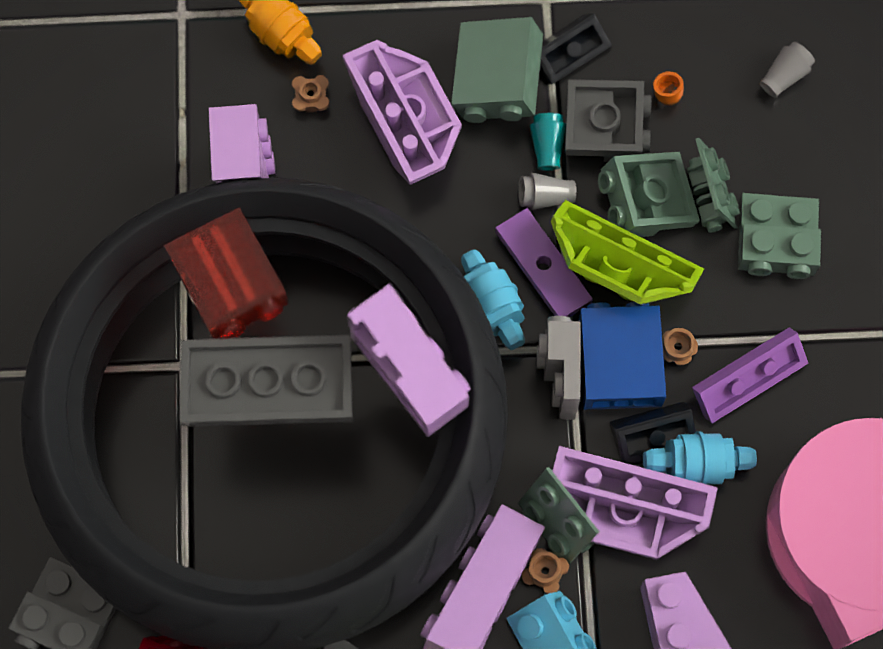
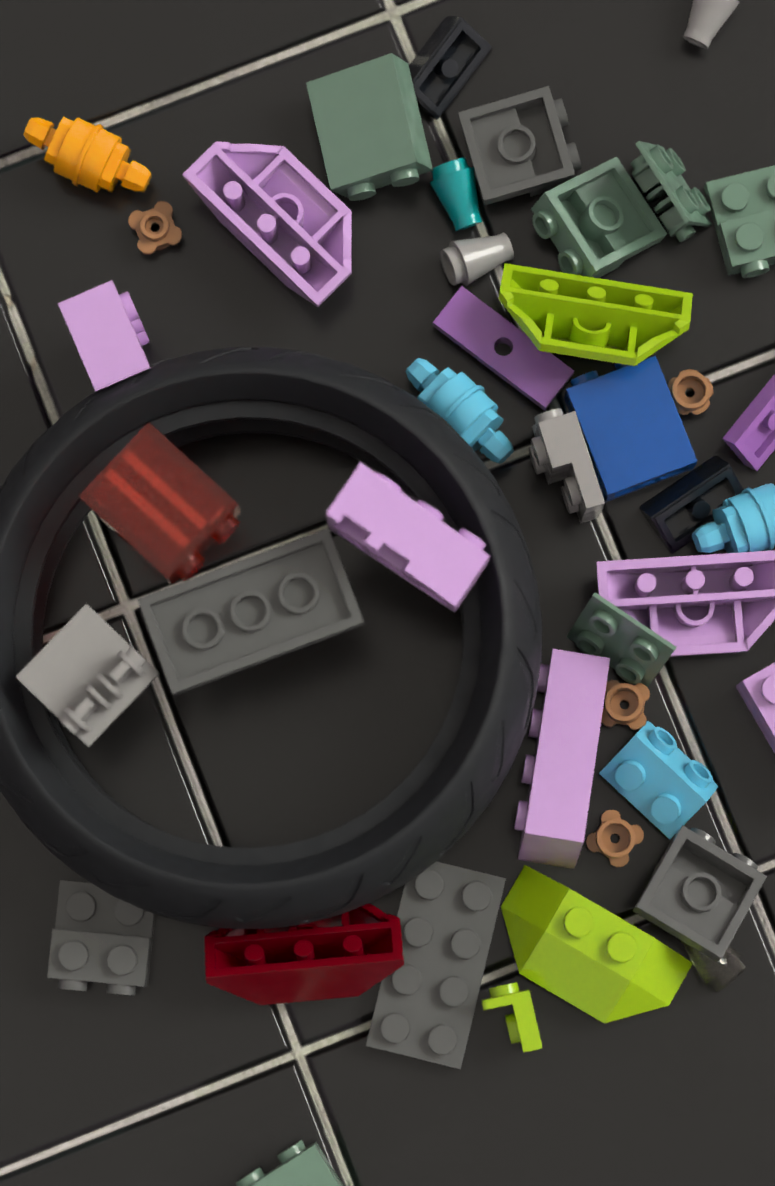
camera: 15 degrees left, 10 degrees up
(120, 388) = (87, 675): none -> light grey hinge
(664, 85) = (571, 76): orange hinge -> none

